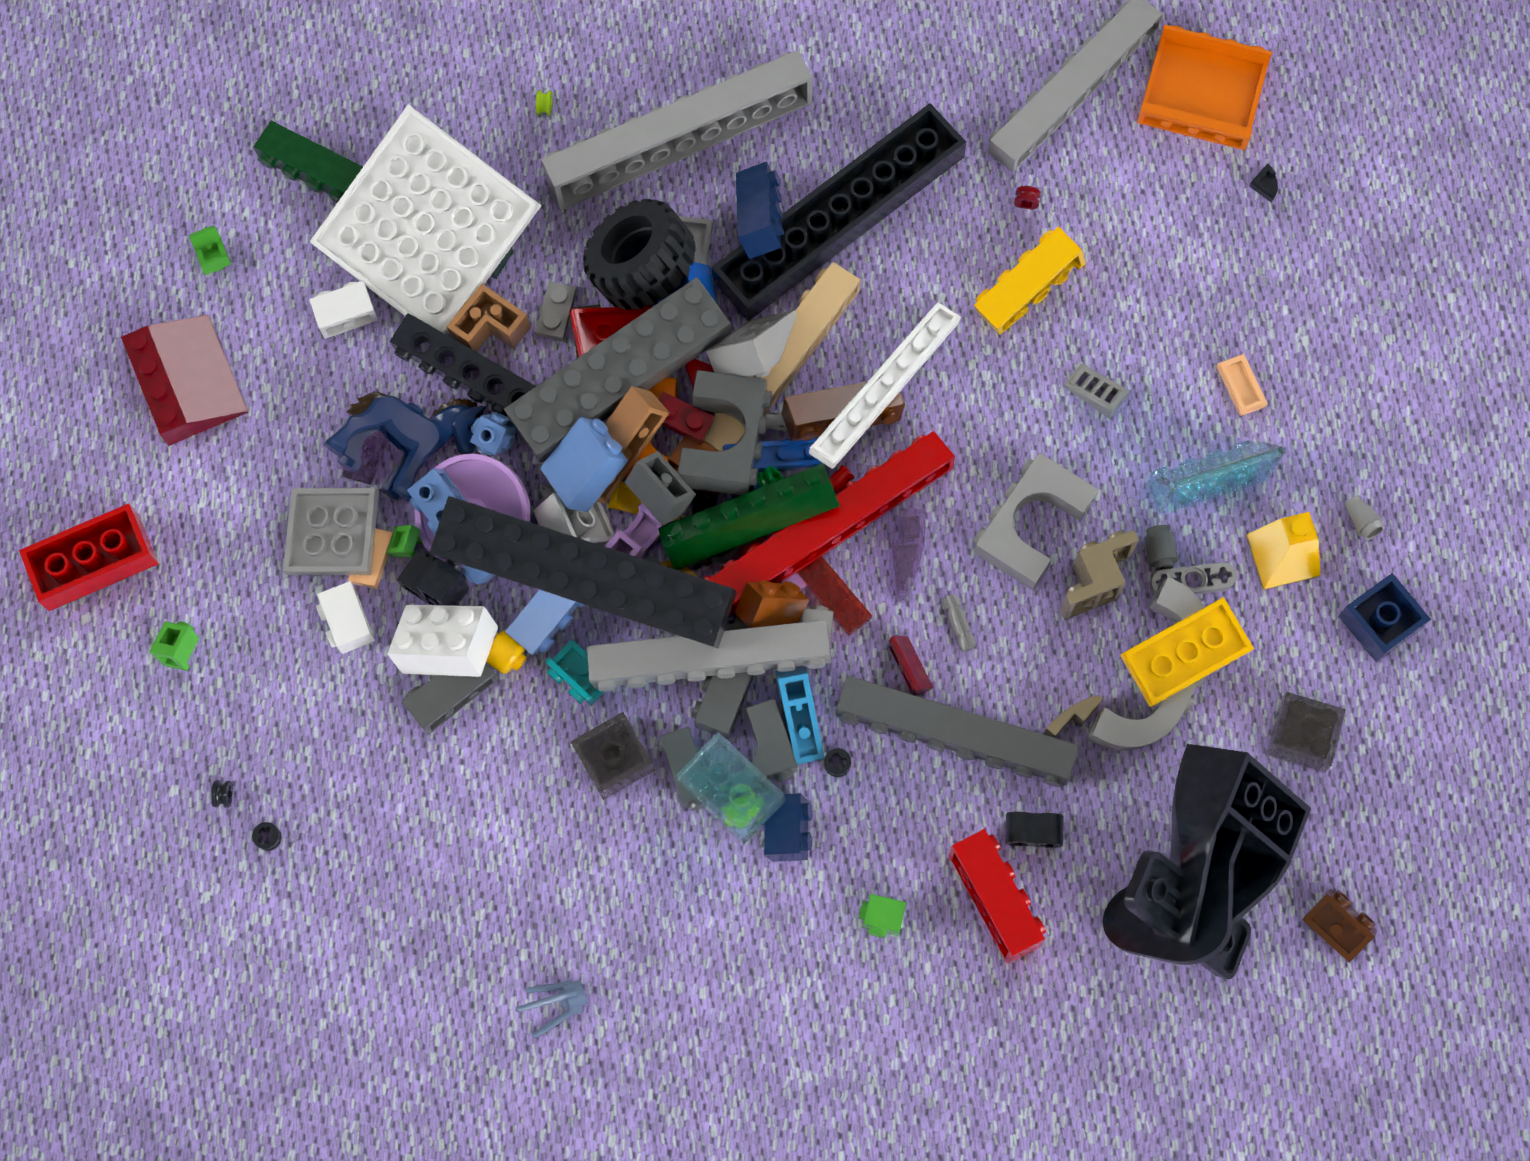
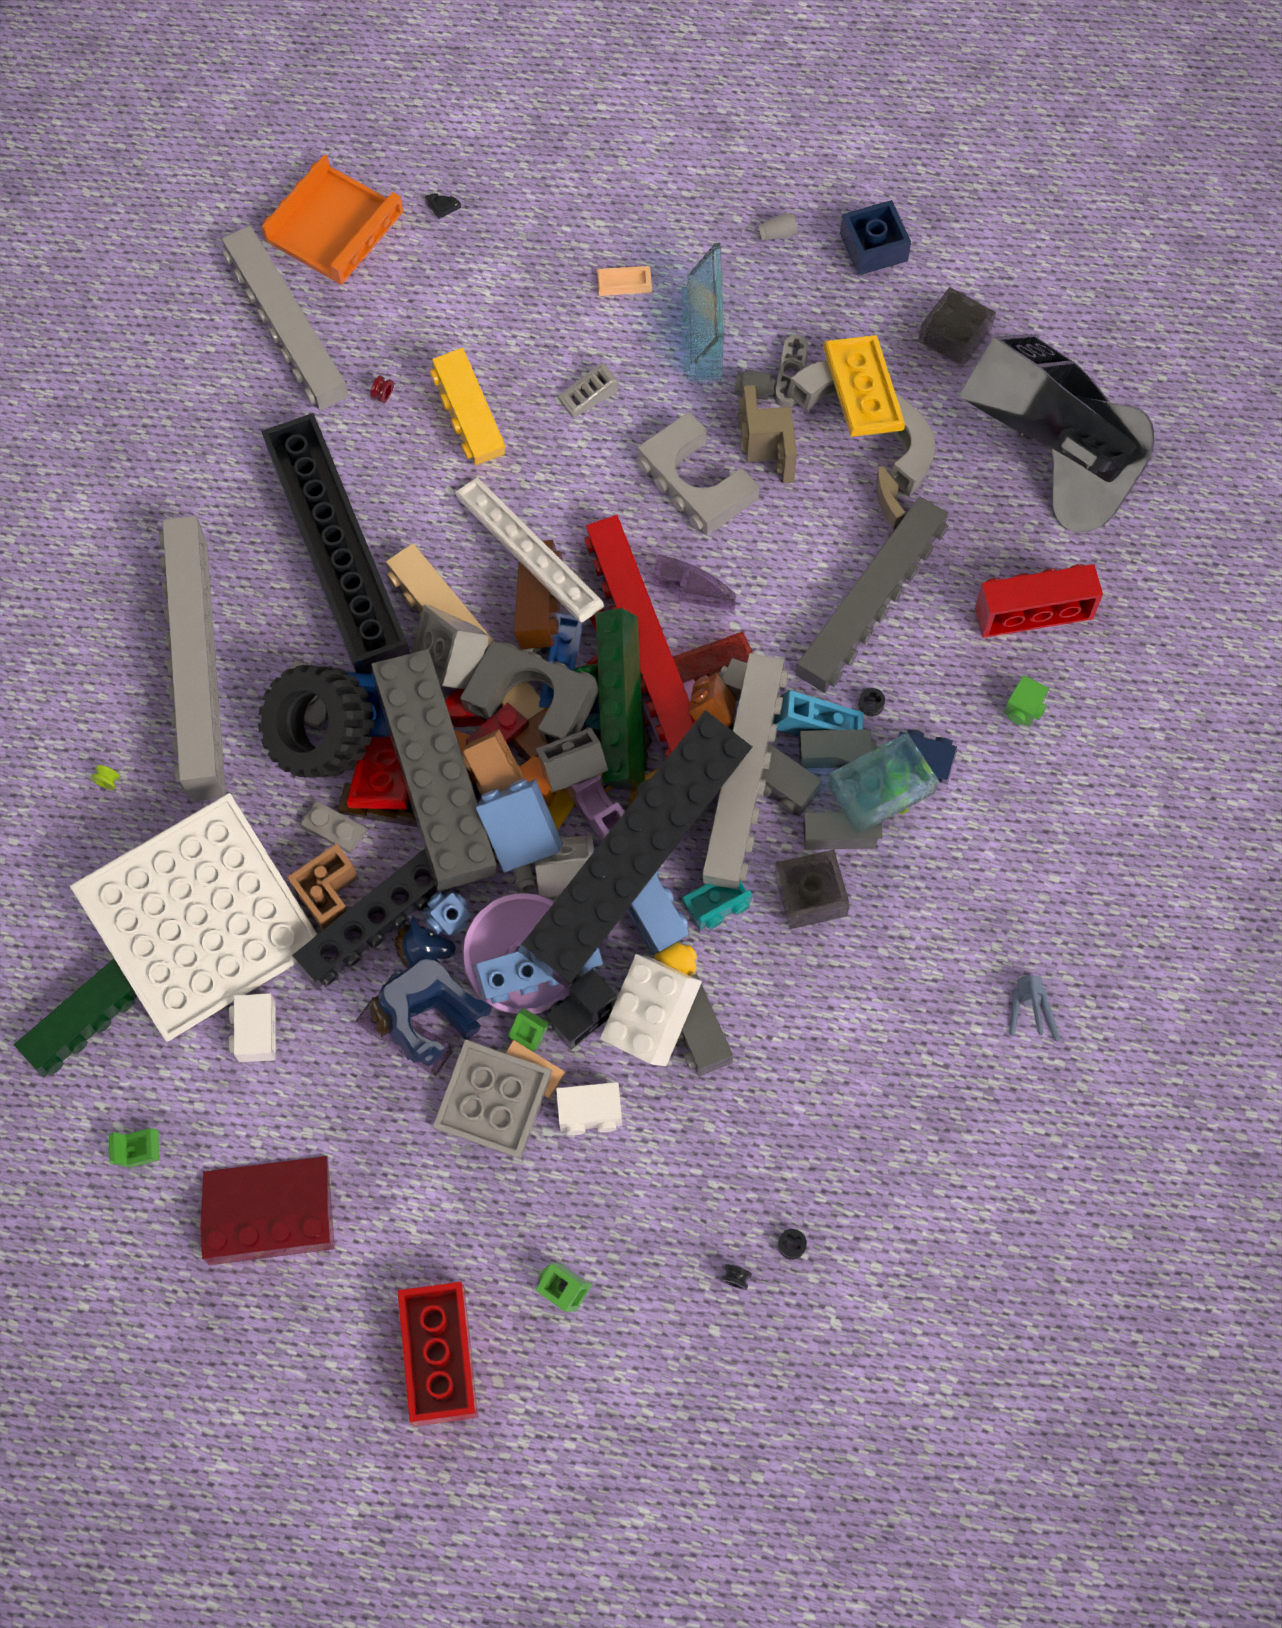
camera: 75 degrees left, 5 degrees down
(759, 209) = (312, 603): dark blue brick -> none
(909, 665) = (799, 618): dark red slope -> none
(959, 623) = (770, 565): light grey axle -> none
(1034, 829) = (981, 558): black axle -> none
(1286, 550) = (789, 292): yellow slope -> none
(1341, 924) = (1128, 356): reddish brown bracket -> none

